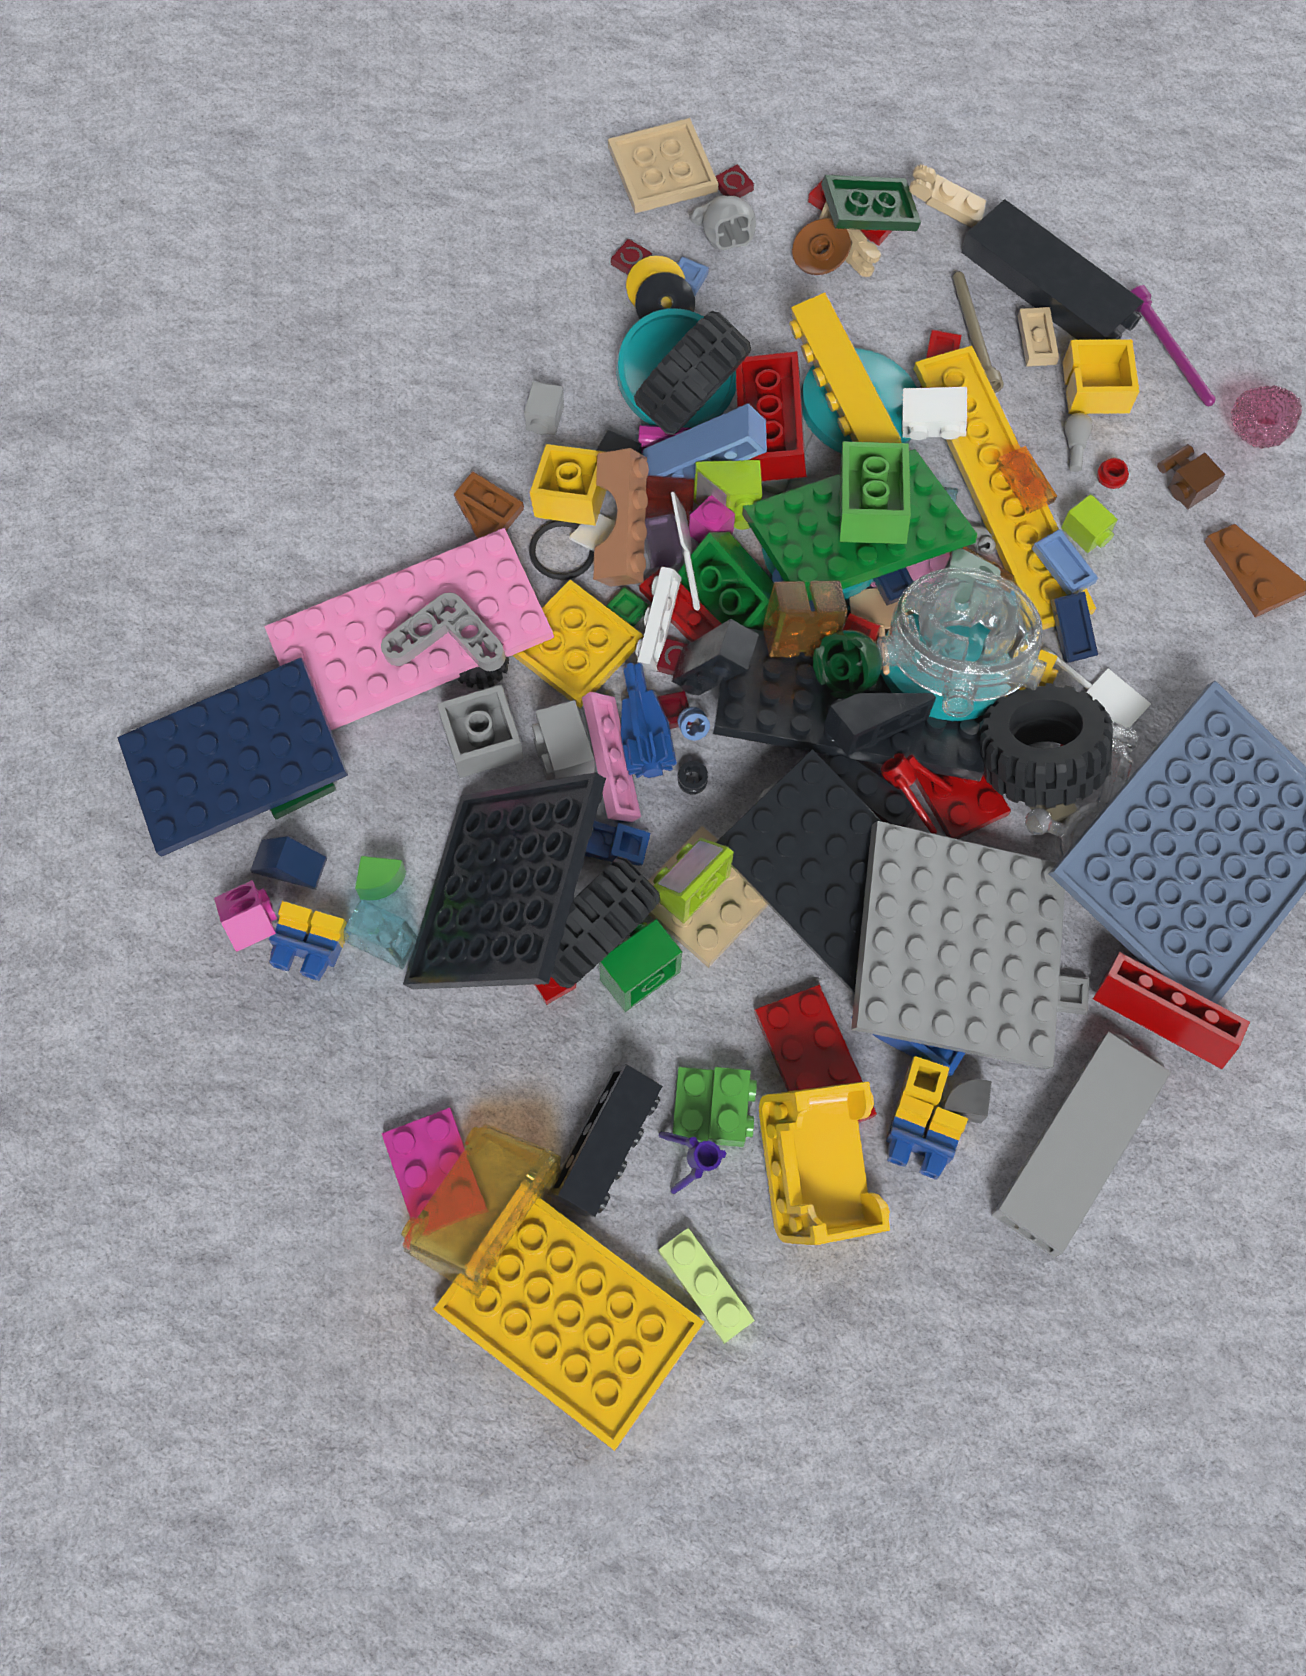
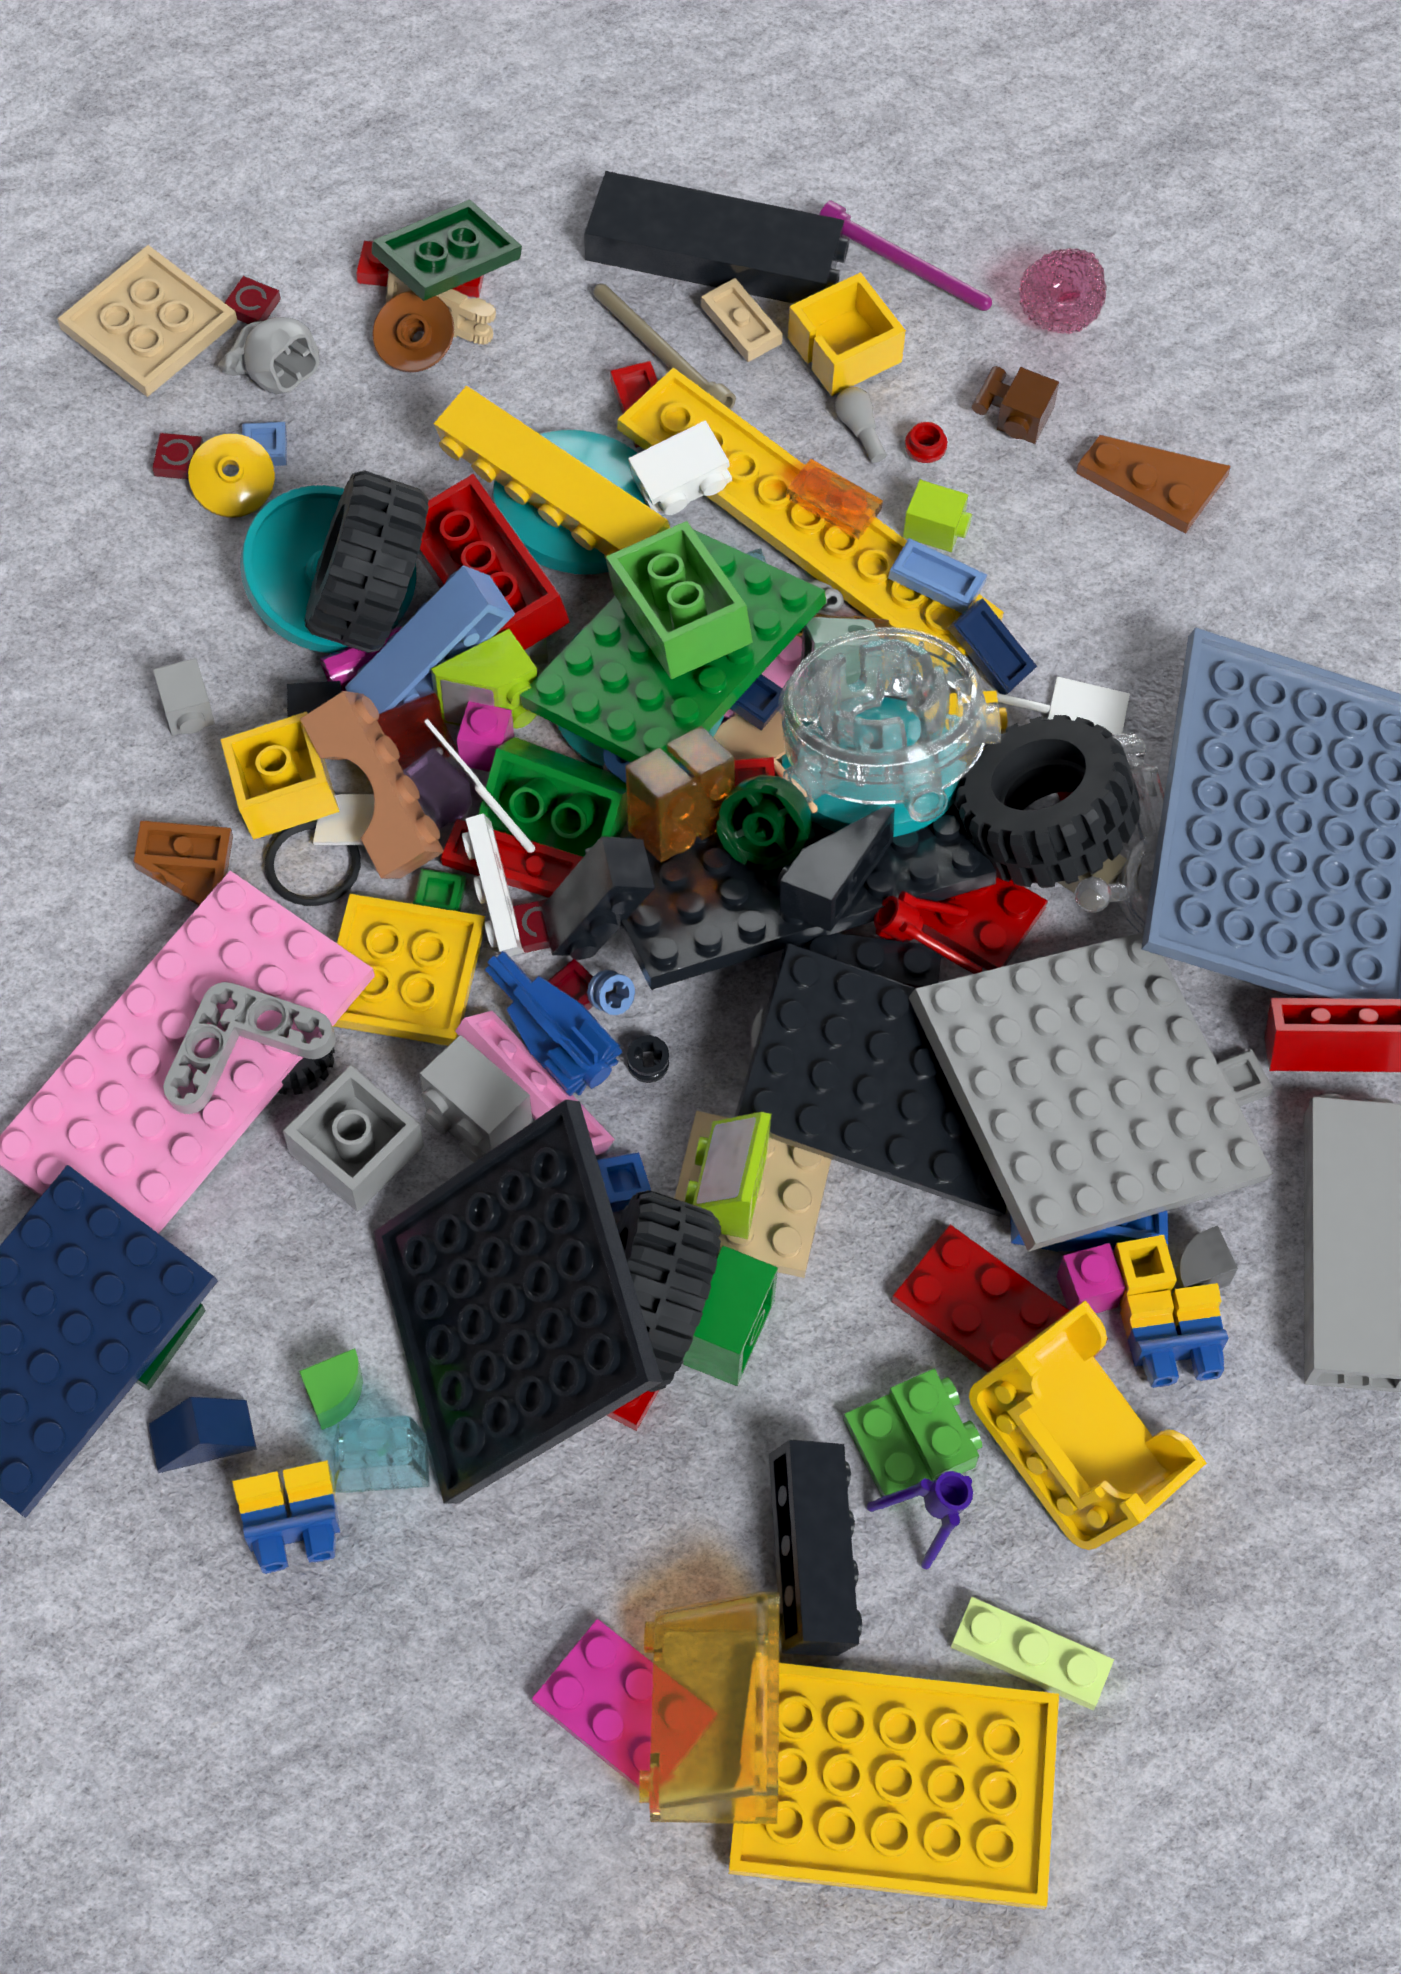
camera: 30 degrees left, 5 degrees down
(246, 915) = (197, 1523): dark pink brick -> none
(660, 286) = (239, 480): black dish -> none
(887, 1070) = (1091, 1277): none -> dark pink brick
(947, 196) = (532, 199): tan hinge -> none

